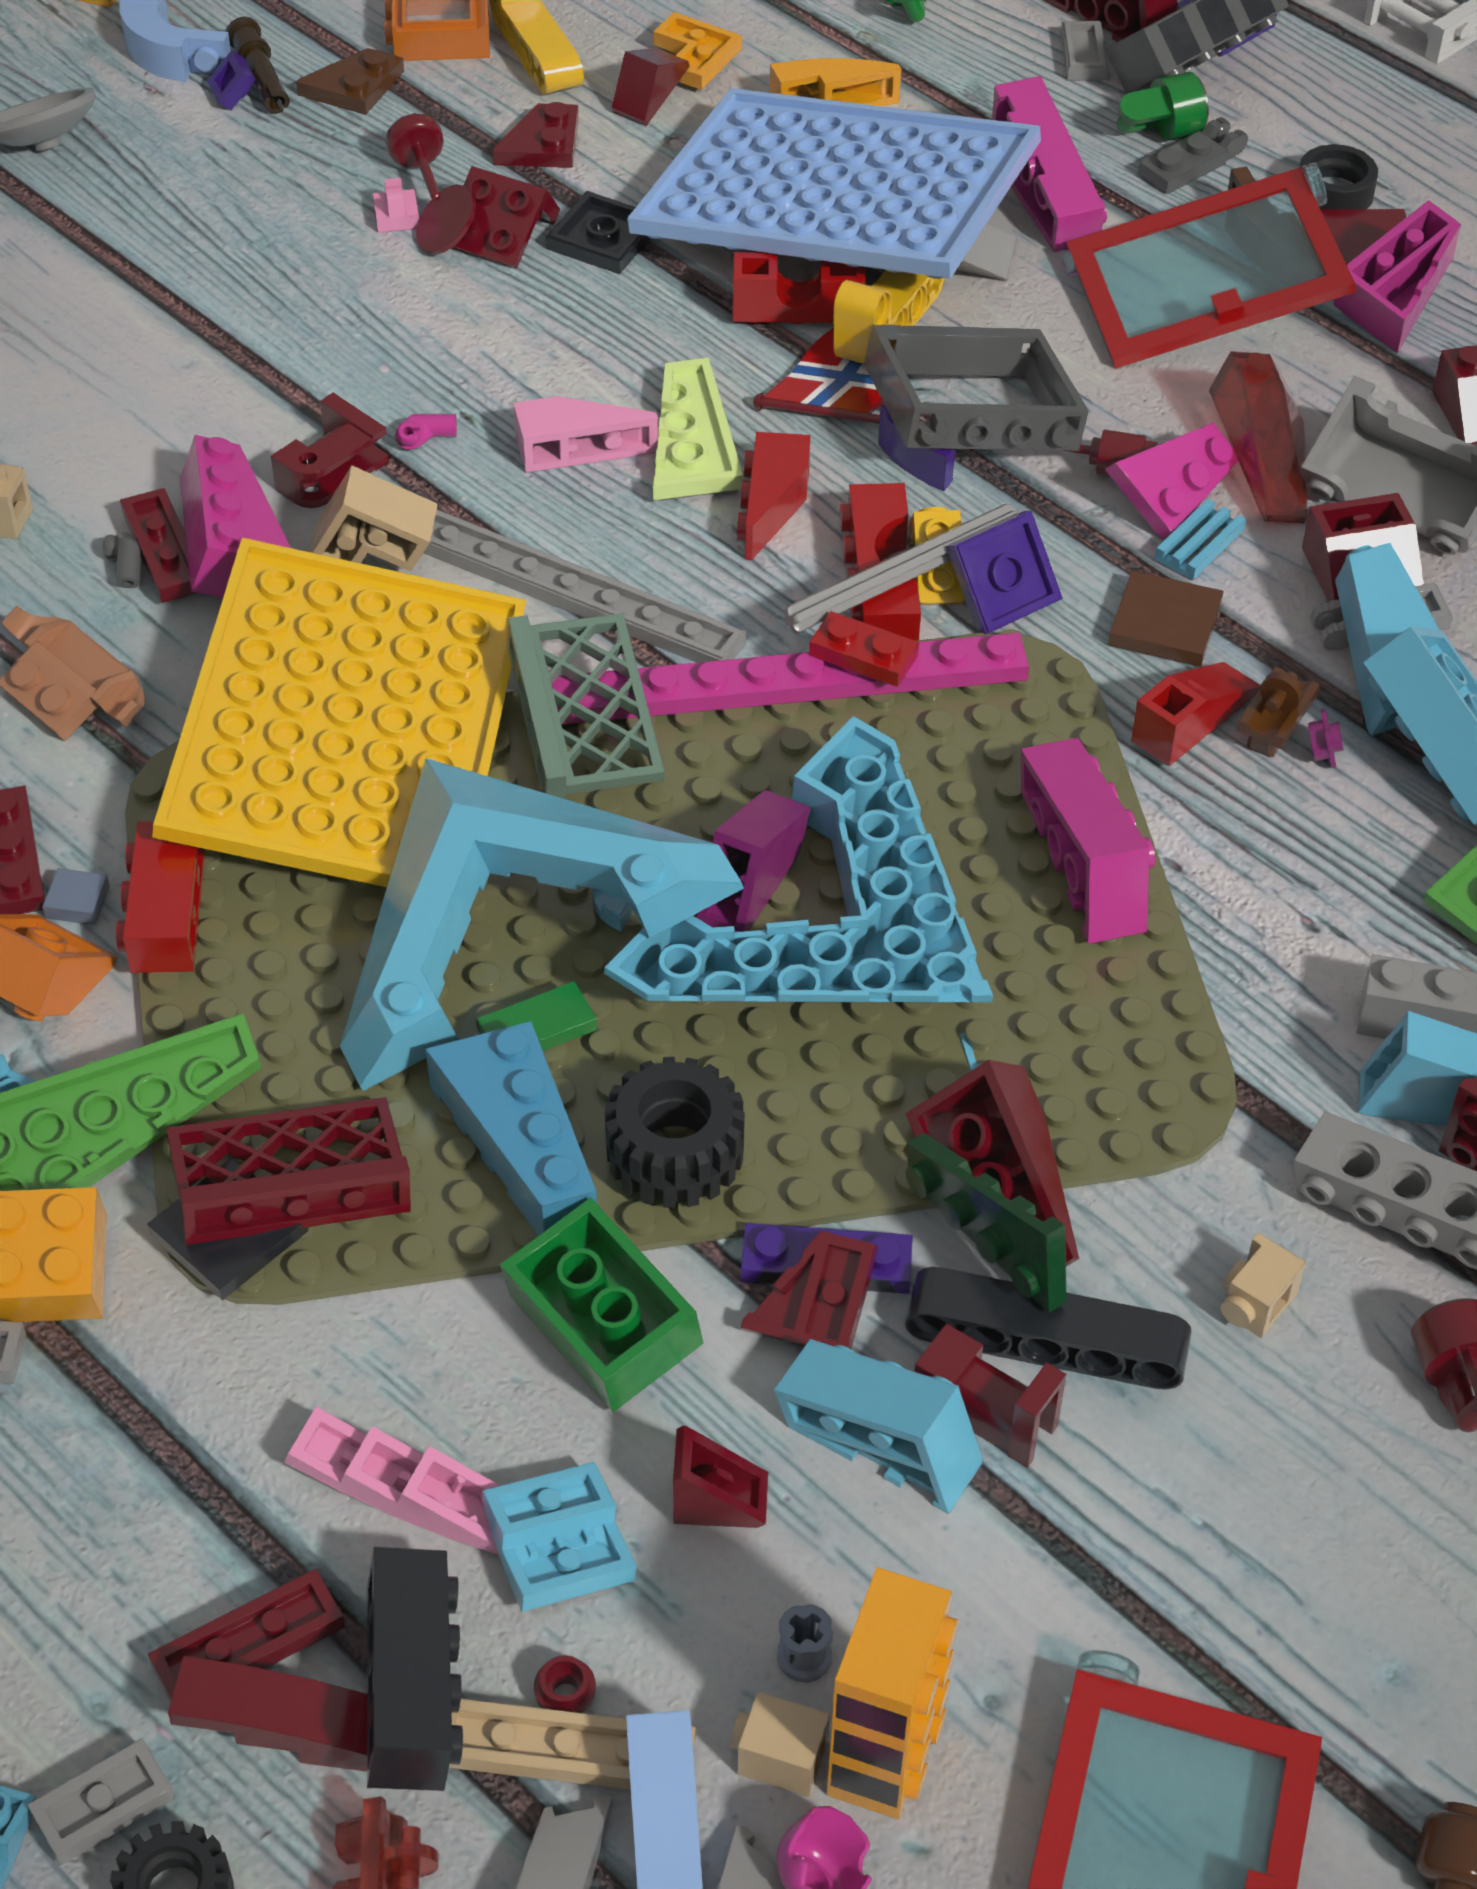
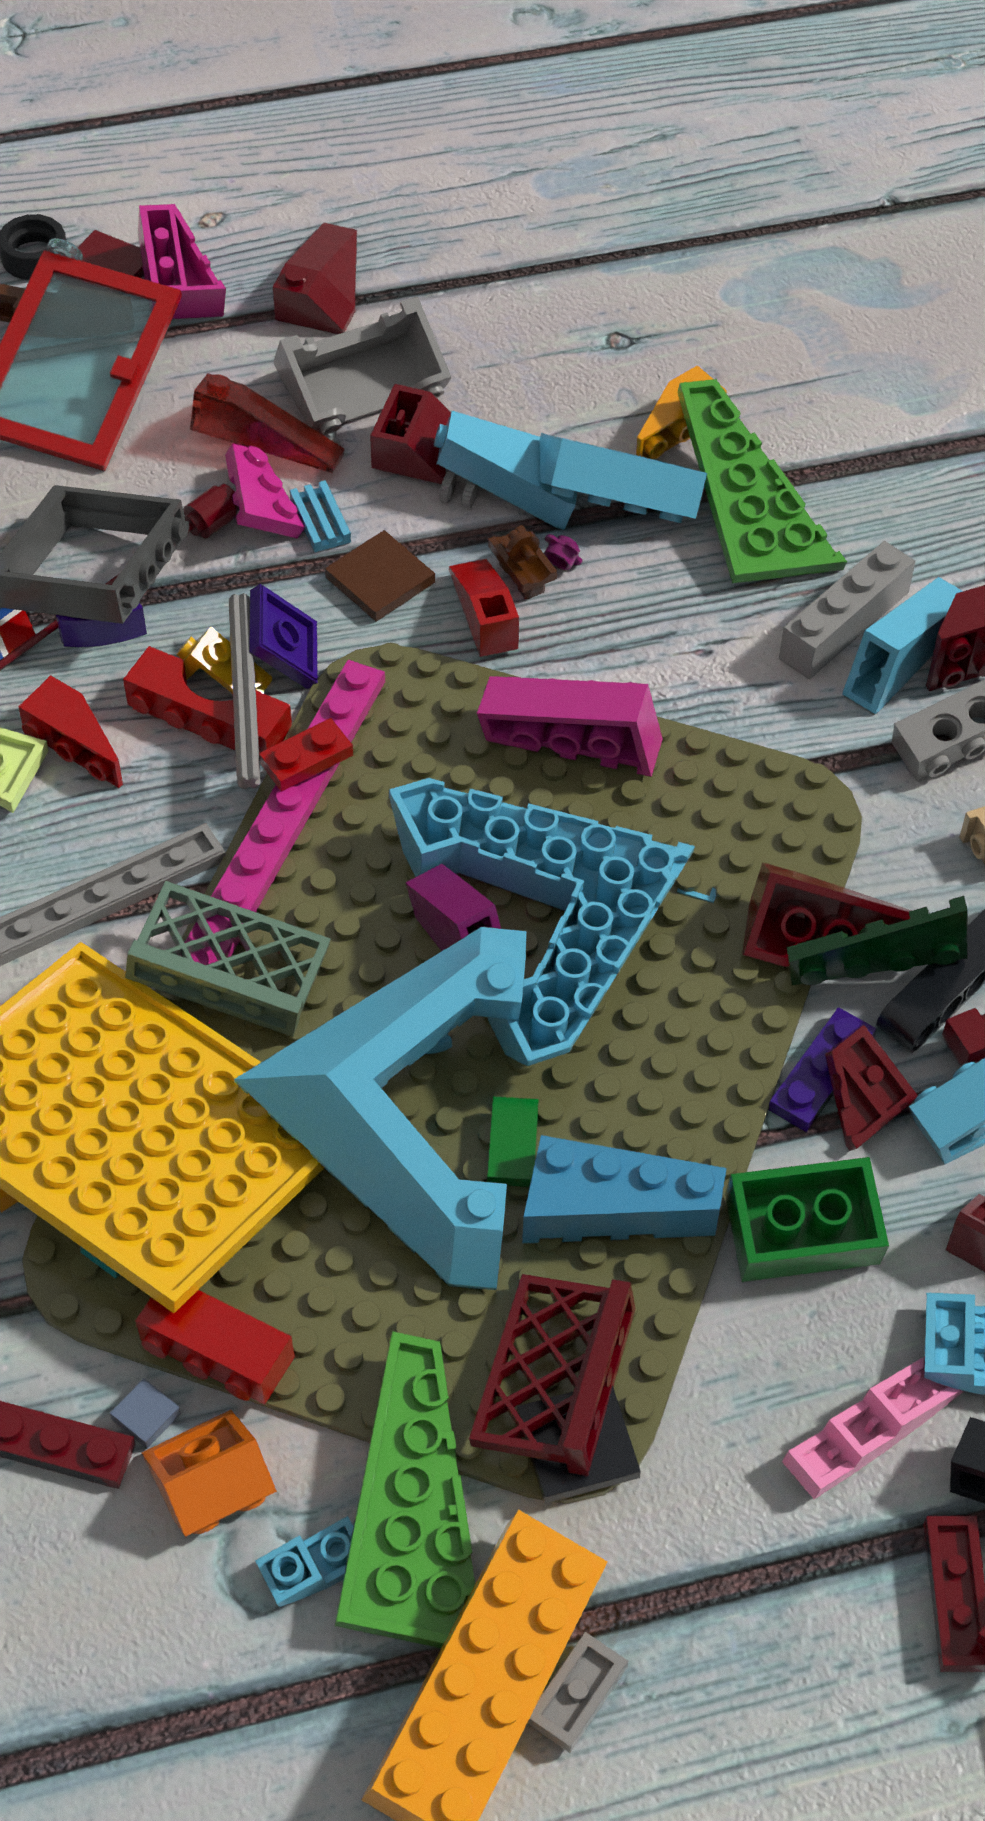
camera: 60 degrees left, 5 degrees up
(674, 1167) = (692, 1067): black tyre -> none

